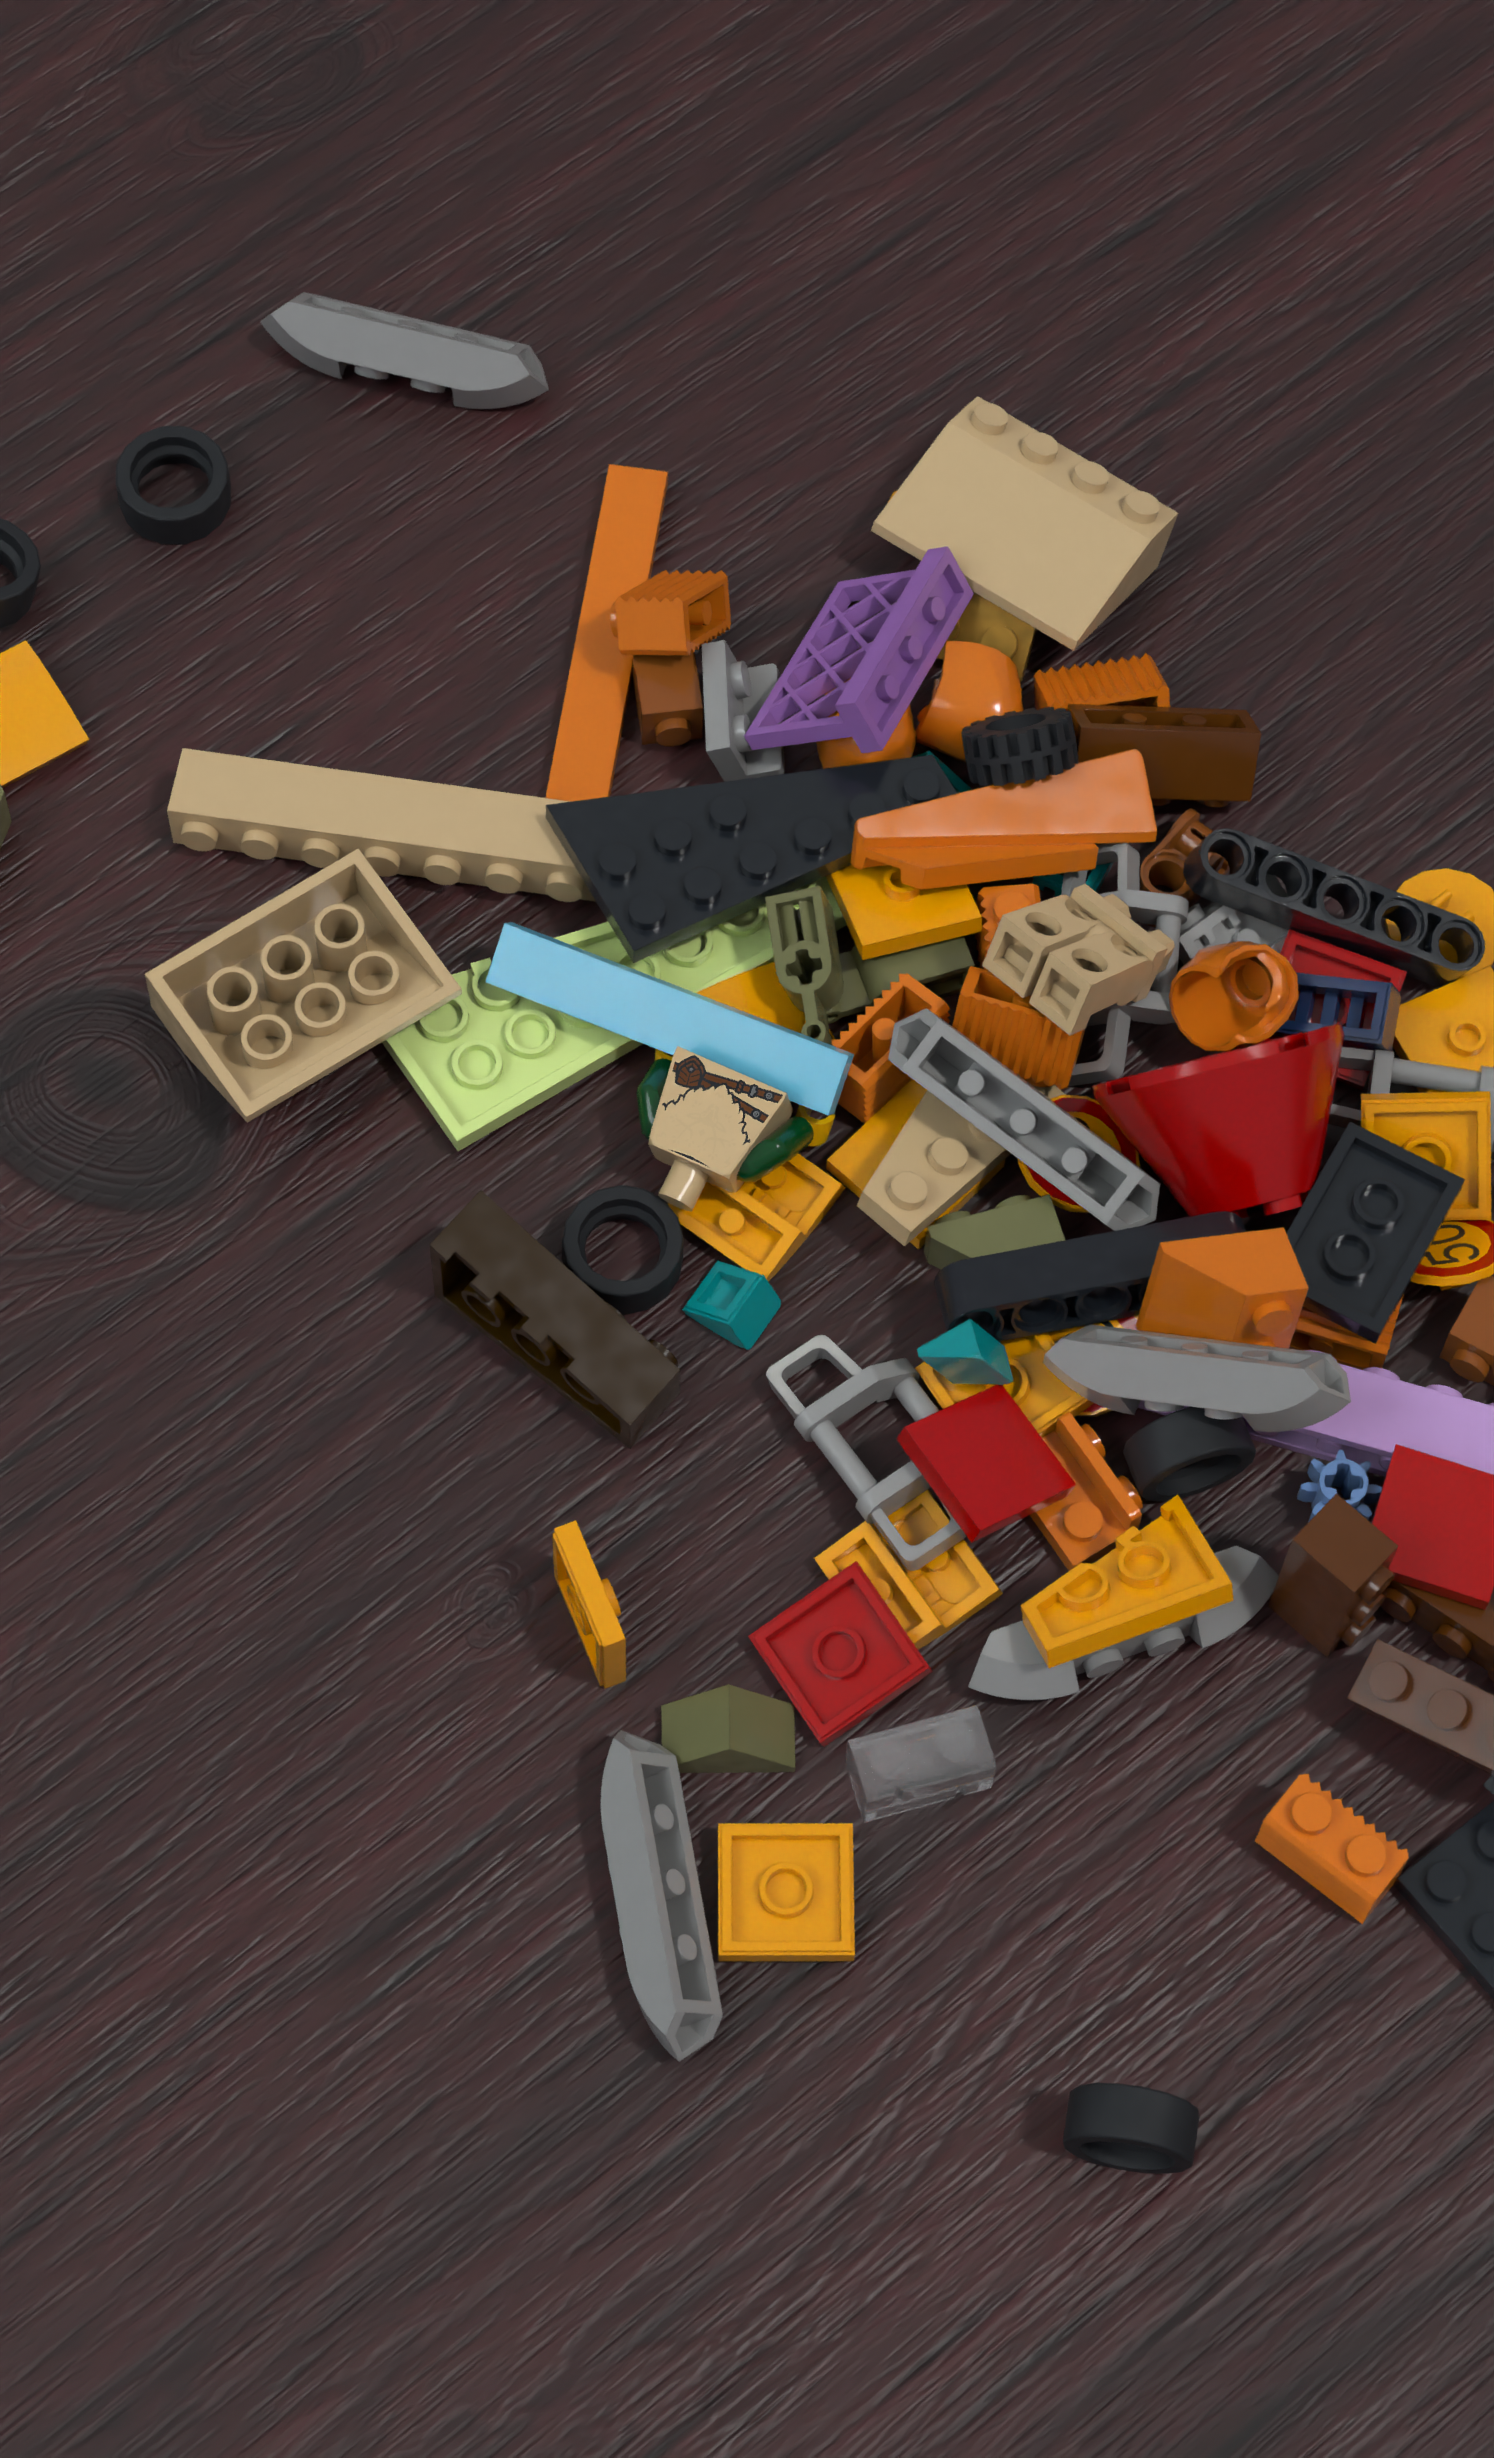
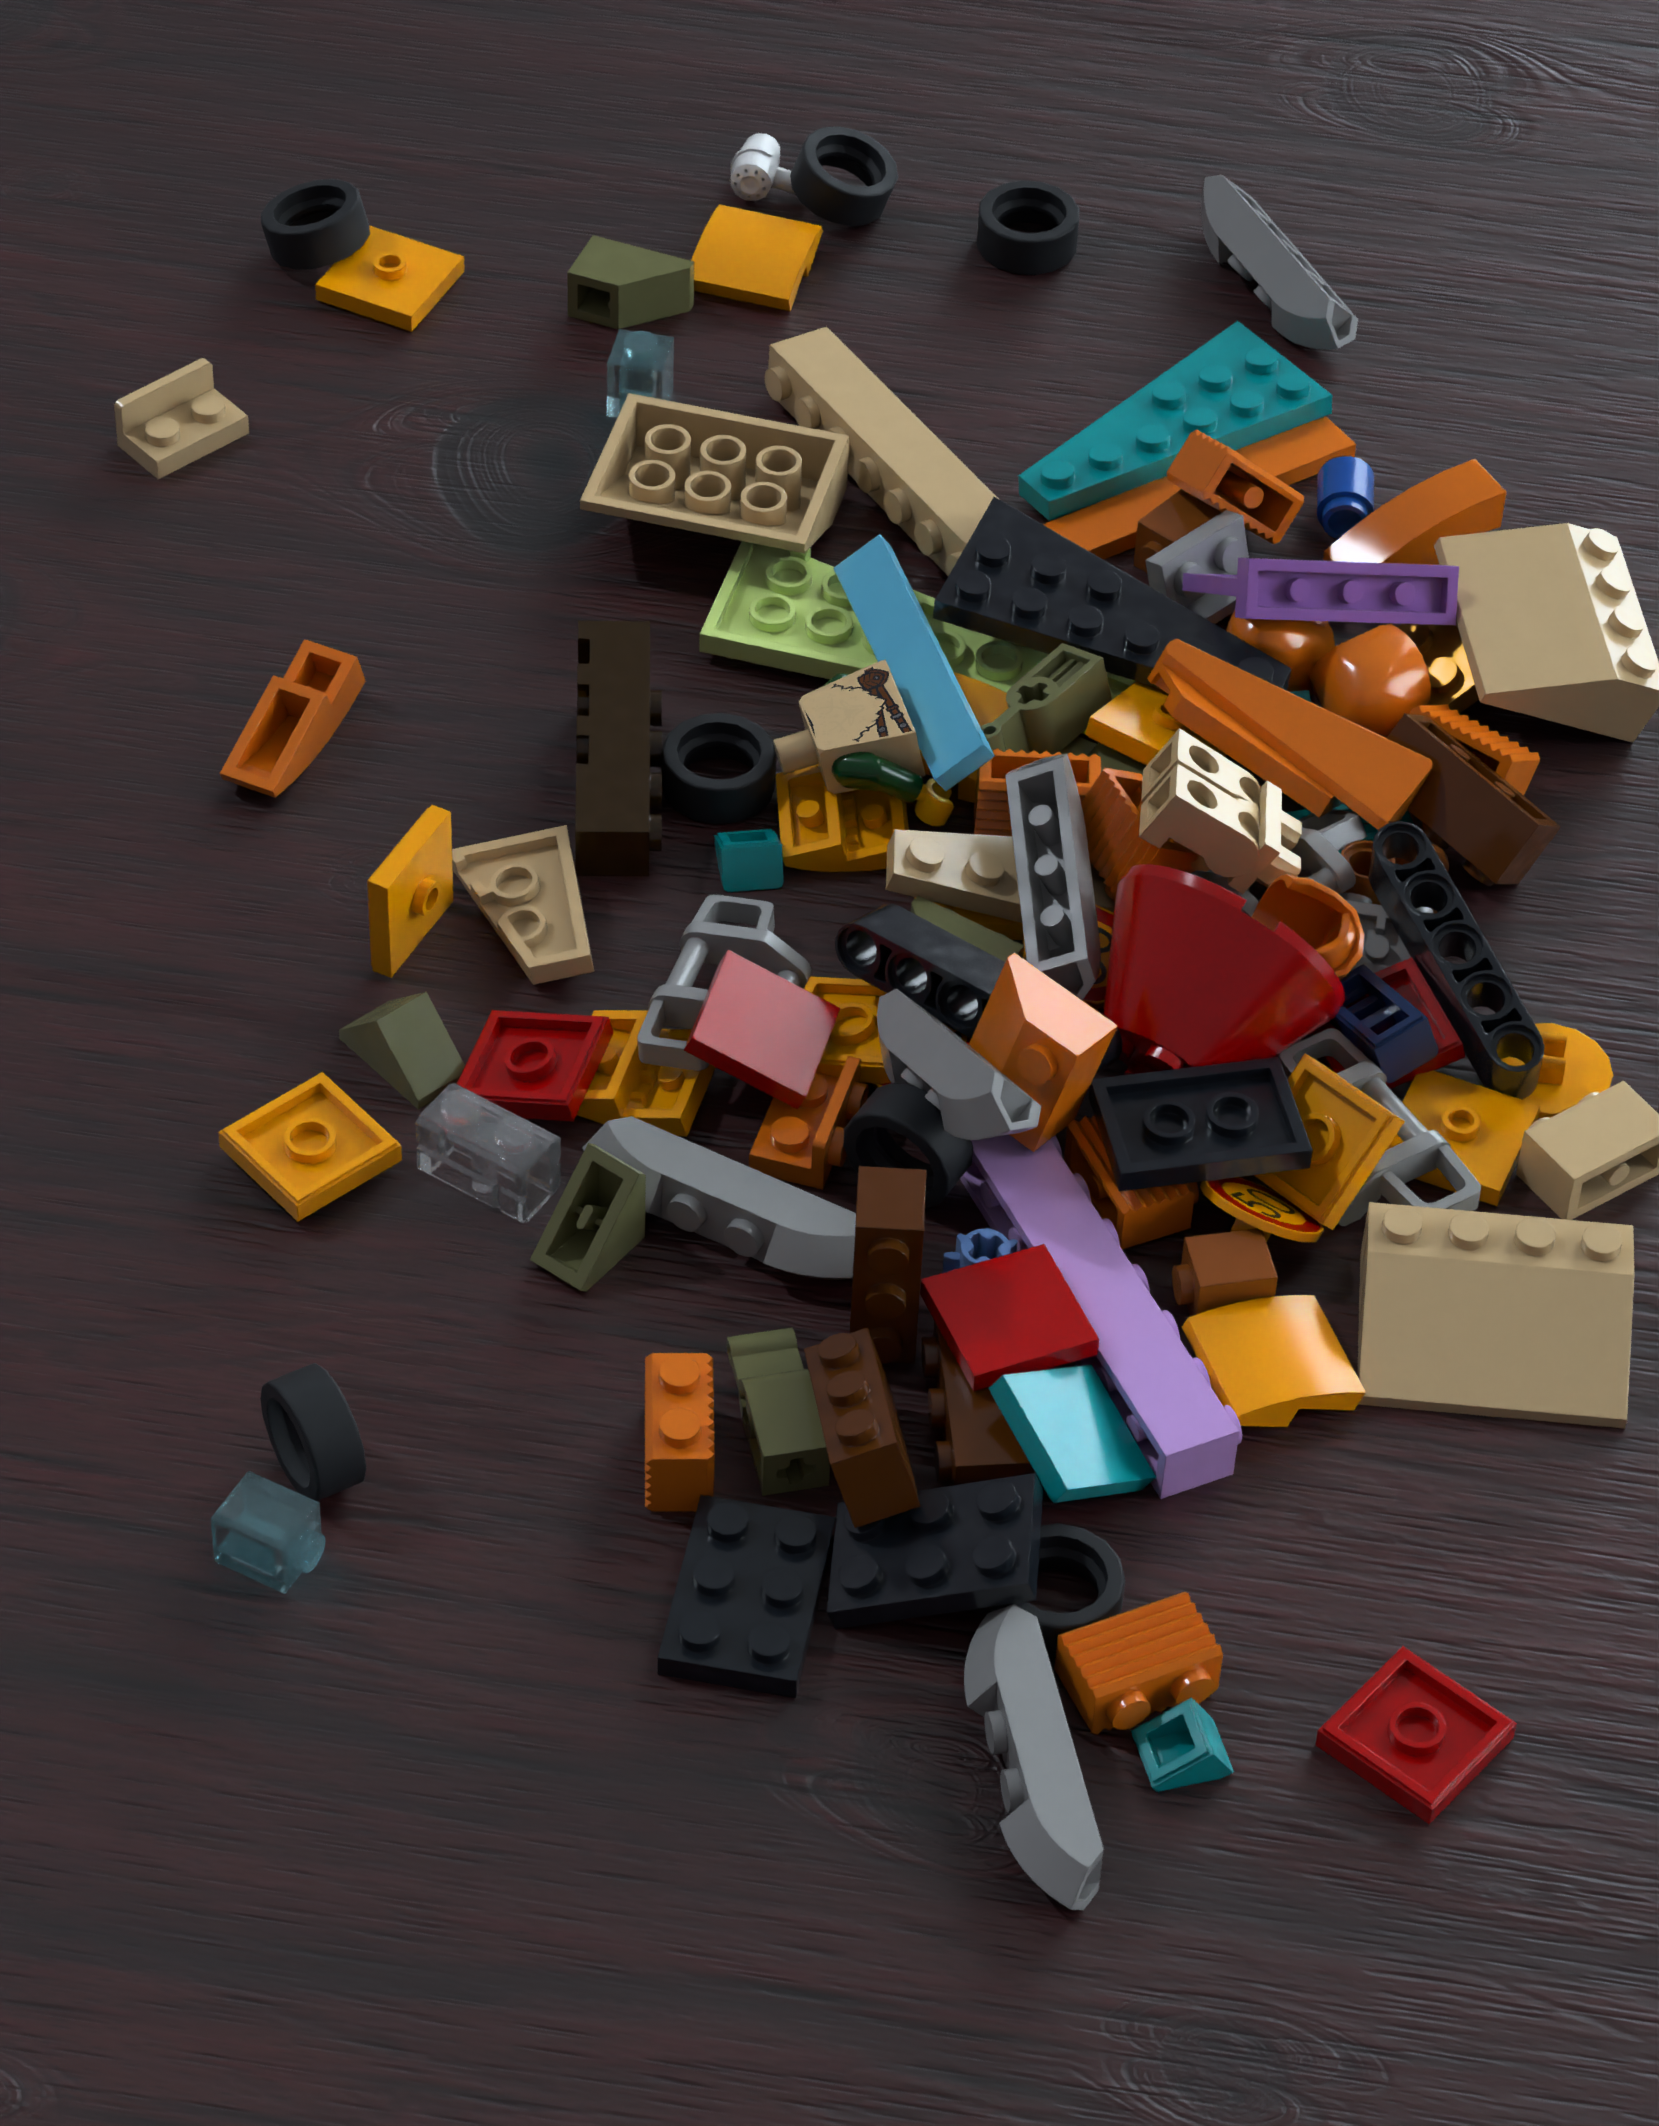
camera: 50 degrees right, 20 degrees down
(90, 934) = (640, 366): none -> clear light blue brick
(272, 1539) = (294, 719): none -> orange slope
(526, 552) = (1226, 389): none -> teal wing
(652, 1510) = (531, 900): none -> tan wing
(658, 1894) = (230, 1068): light grey brick -> none
(727, 534) = (1344, 494): none -> blue brick
(811, 516) = (1410, 524): none -> orange slope
(968, 1356) = (836, 966): teal slope -> none
(1020, 746) = (1350, 693): black tyre -> none
(1059, 1744) = (594, 1220): none -> olive slope
(1132, 1590) = (763, 1169): light orange wing -> none
(1189, 2232) = (267, 1532): none -> clear light blue brick
(1357, 1752) = (779, 1412): none -> olive piece

